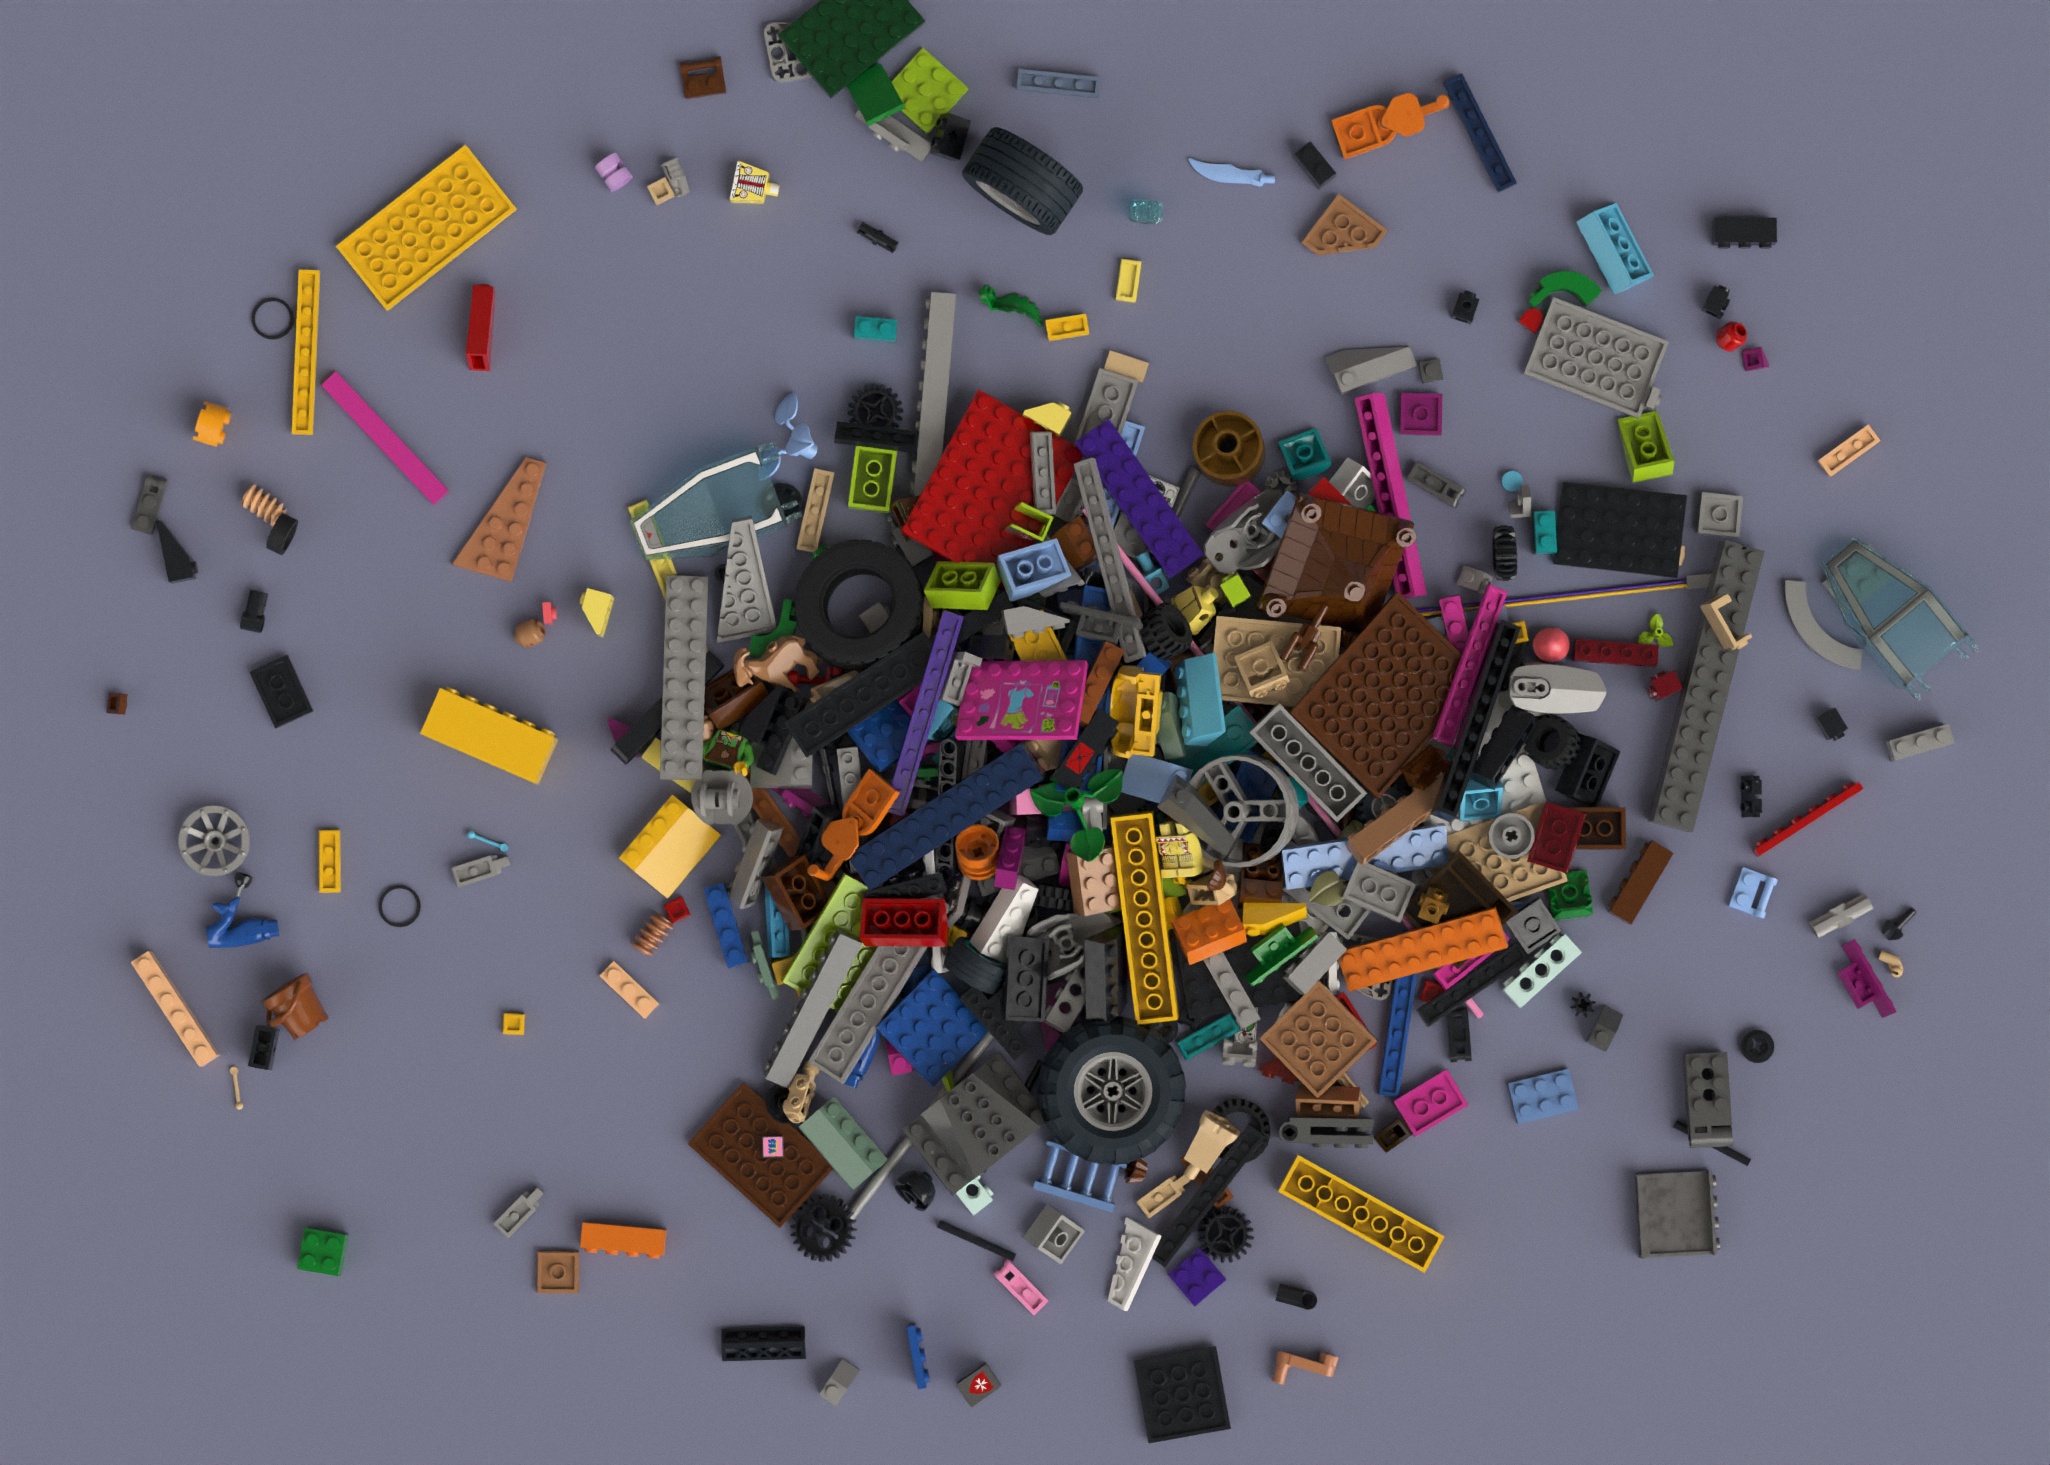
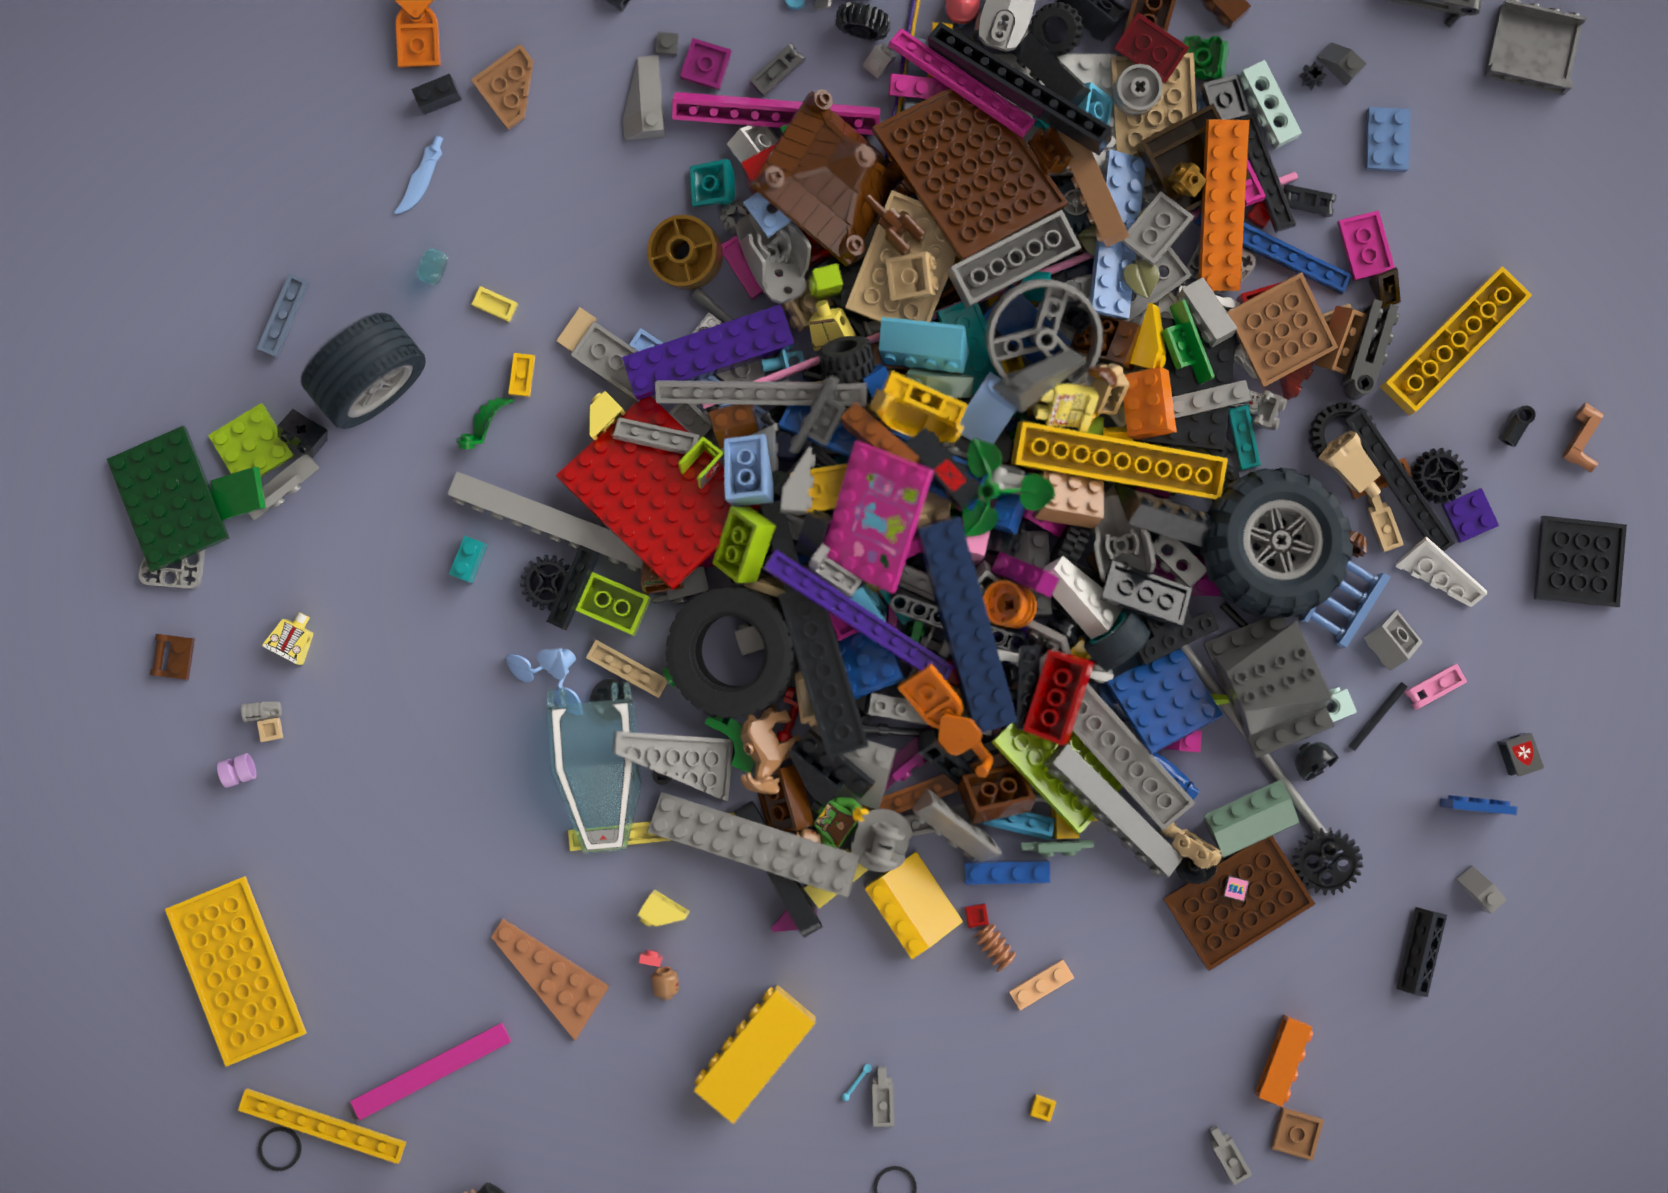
camera: 75 degrees left, 0 degrees up
(480, 328) = (350, 945): red slope -> none
(877, 237) = (379, 532): black pin -> none

